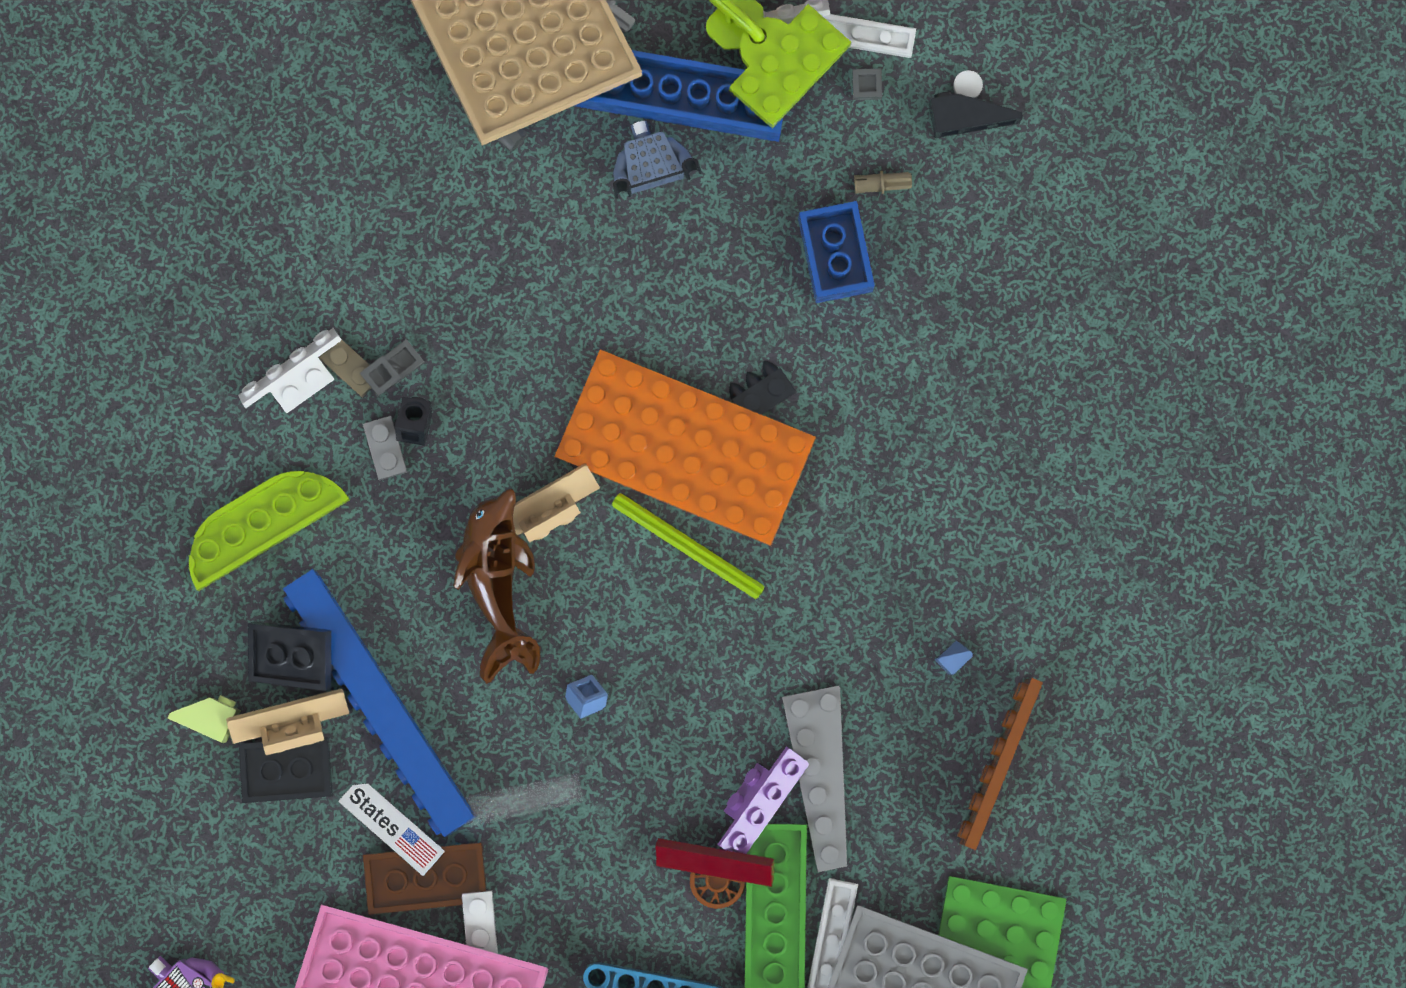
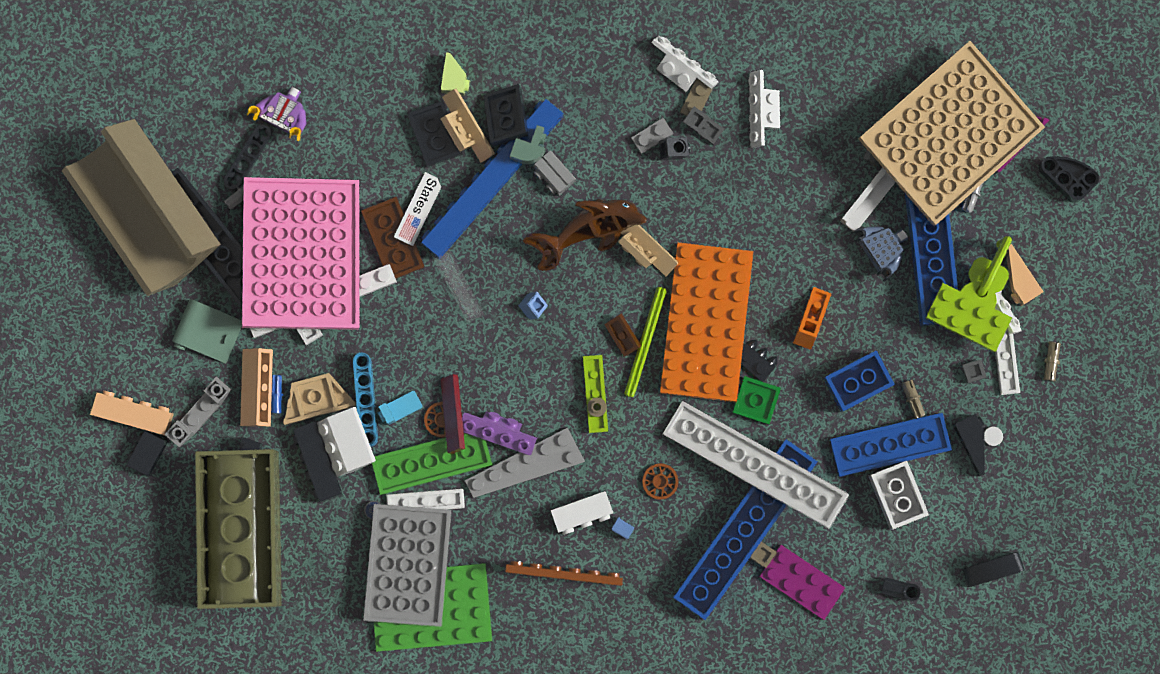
camera: 75 degrees right, 0 degrees up
(260, 522) = (583, 72): lime plate -> none
(357, 636) = (529, 152): none -> sand green brick
(393, 274) = (763, 109): none -> white bracket
(398, 608) = (554, 173): none -> light grey brick
(573, 161) = (868, 200): none -> white fence
(669, 575) = (622, 335): none -> reddish brown plate
(682, 939) = (399, 408): none -> medium azure bracket
(724, 292) = (812, 318): none -> orange slope
(744, 641) = (595, 389): none -> lime plate
(765, 654) = (597, 401): none -> dark tan plate
(820, 408) = (756, 400): none -> green plate
(899, 583) = (660, 481): none -> dark orange wheel
(915, 711) = (582, 513): none -> white brick
(918, 435) = (756, 464): none -> white plate
(939, 234) = (890, 444): none -> blue plate
(1006, 479) = (735, 542): none -> blue brick
(1017, 243) = (898, 495): none -> white brick
(1048, 464) = (763, 554): none -> dark tan plate
(1103, 419) = (802, 582): none -> magenta plate
(1153, 283) = (898, 589): none -> black piece
(1162, 136) = (993, 569): none -> black beam

